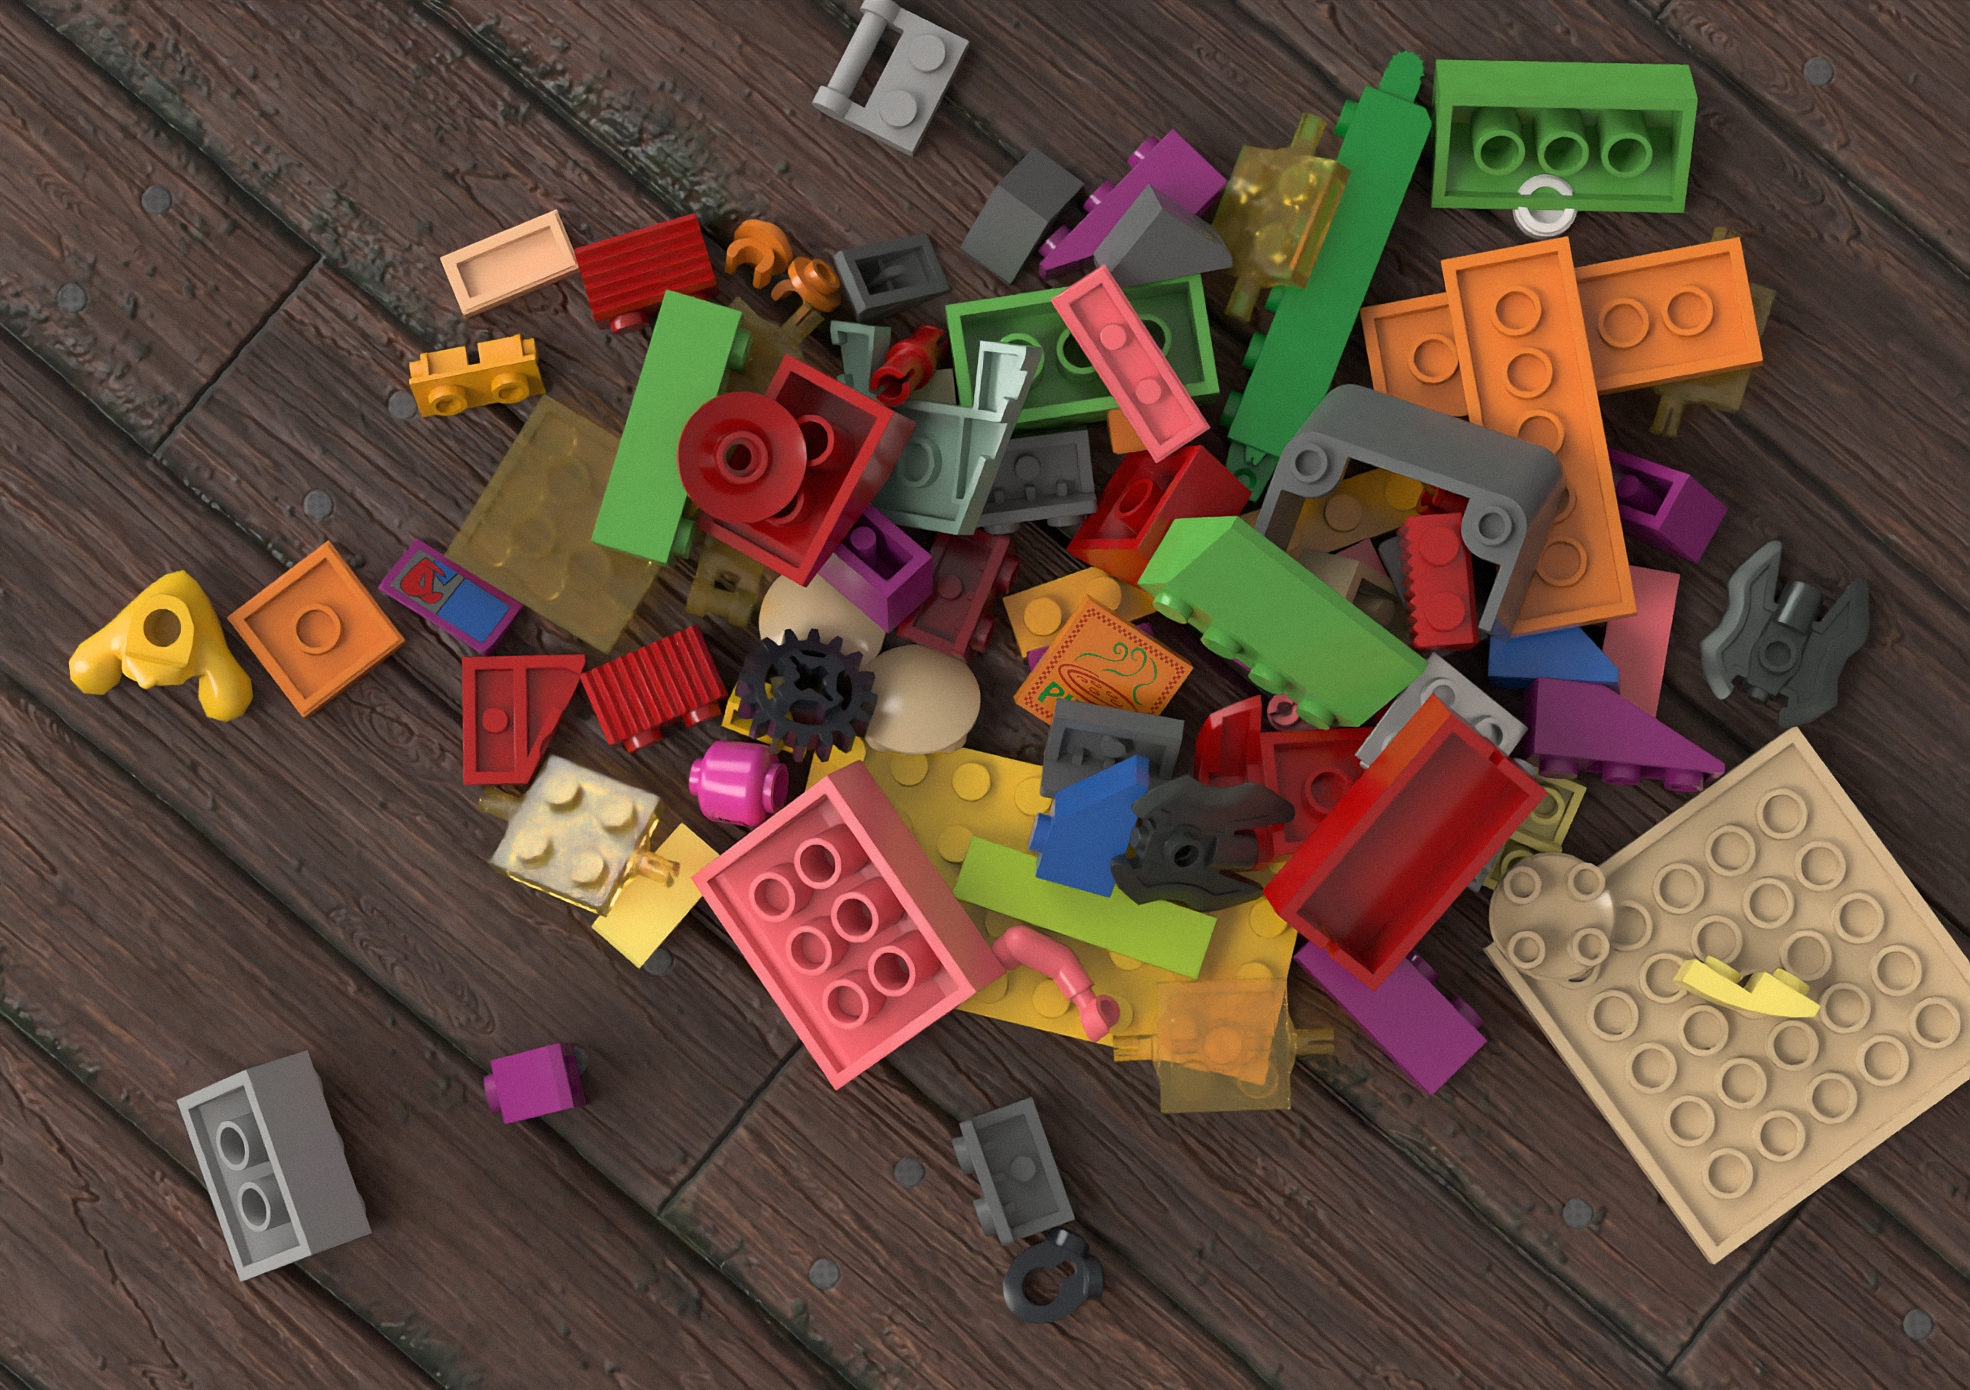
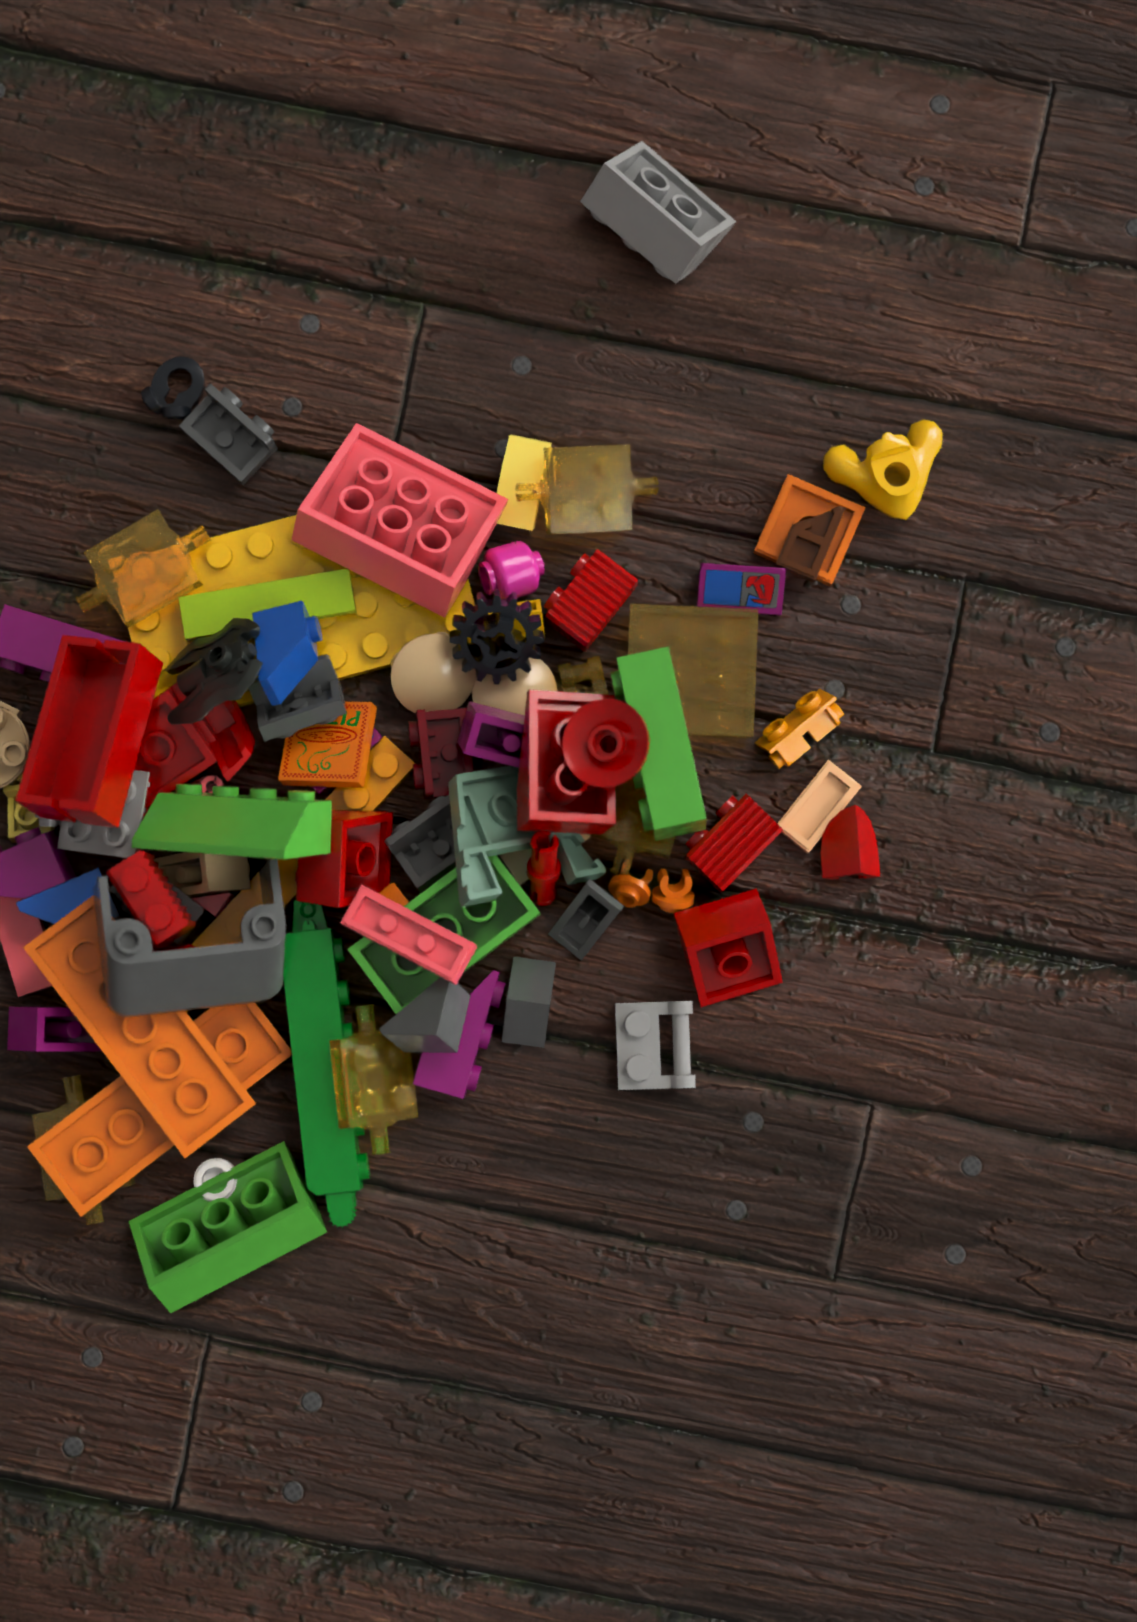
camera: 150 degrees right, 0 degrees up
(328, 605) = (809, 543): none -> reddish brown tile
(500, 187) = (850, 846): none -> red brick
(513, 713) = (666, 541): red wing -> none
(535, 1083) = (531, 335): magenta slope -> none
(726, 144) = (729, 947): none -> red slope
(1058, 961) = (263, 564): coral arm -> none

